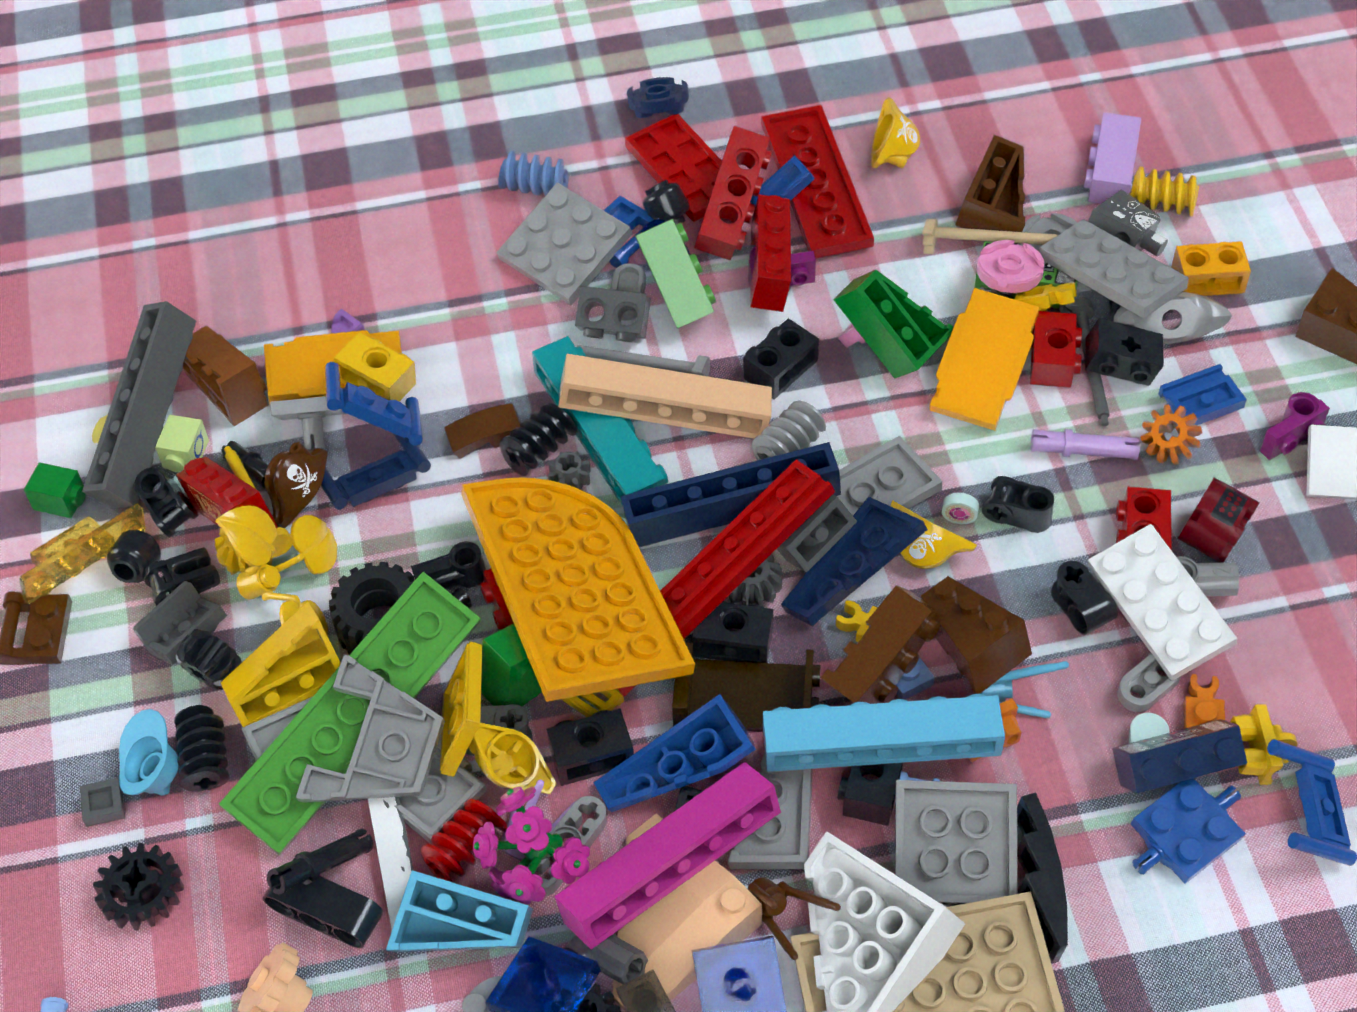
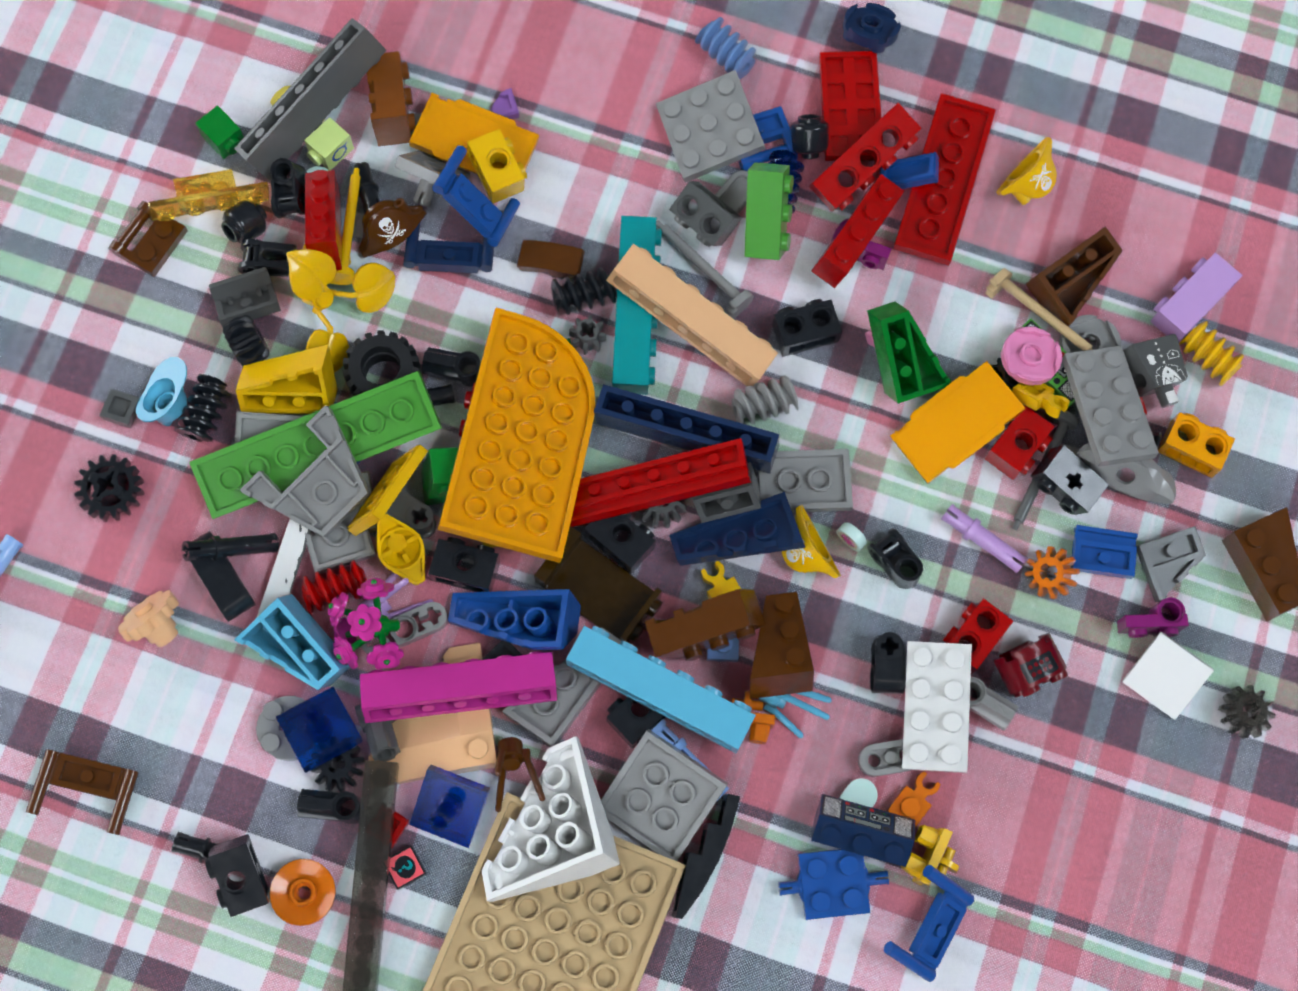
camera: 25 degrees right, 20 degrees up
(1265, 372) = (1170, 559): none -> wing

